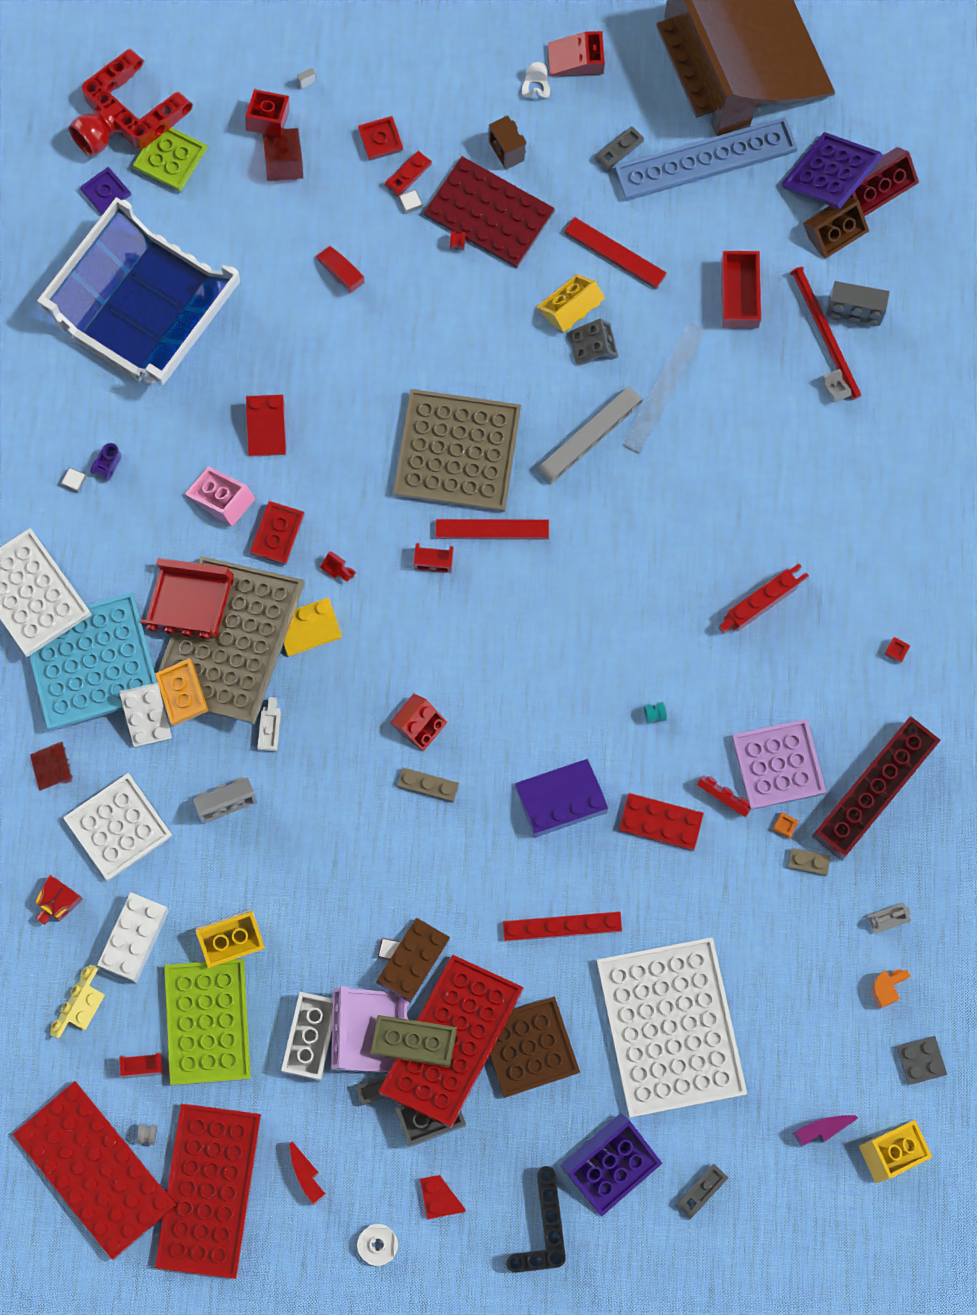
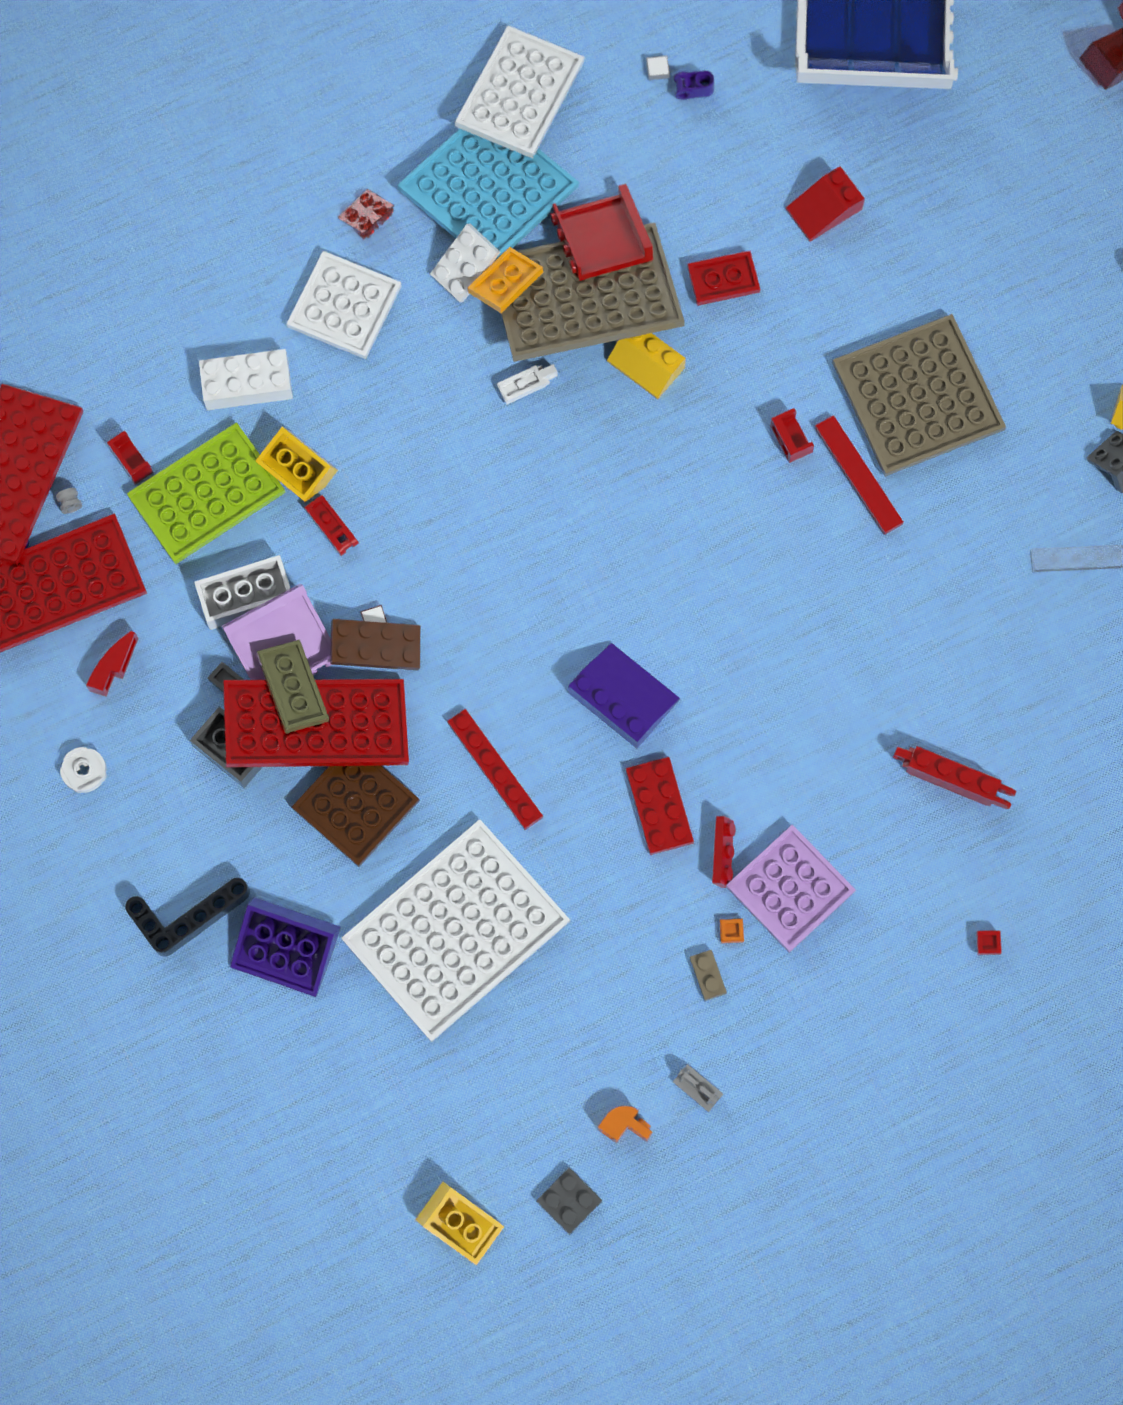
camera: 65 degrees right, 0 degrees up
(56, 900) = (241, 291): red torso -> none
(81, 1004) = (156, 373): light yellow bracket -> none
(221, 495) = (726, 205): bright pink slope -> none
(225, 800) = (427, 383): light grey slope -> none
(293, 939) = (331, 524): none -> red plate
(335, 567) = (723, 349): red plate -> none
(341, 269) = (1033, 179): red slope -> none
(418, 721) = (615, 516): red slope -> none
(428, 785) = (559, 562): dark tan plate -> none
(439, 1198) = (160, 802): red wing -> none
(590, 435) = (1019, 511): light grey beam -> none
(655, 712) = (767, 736): teal wheel -> none
(702, 1191) = (309, 1050): dark grey plate -> none
(823, 1128) = (440, 1136): magenta slope -> none
(876, 788) = (825, 998): dark red brick -> none

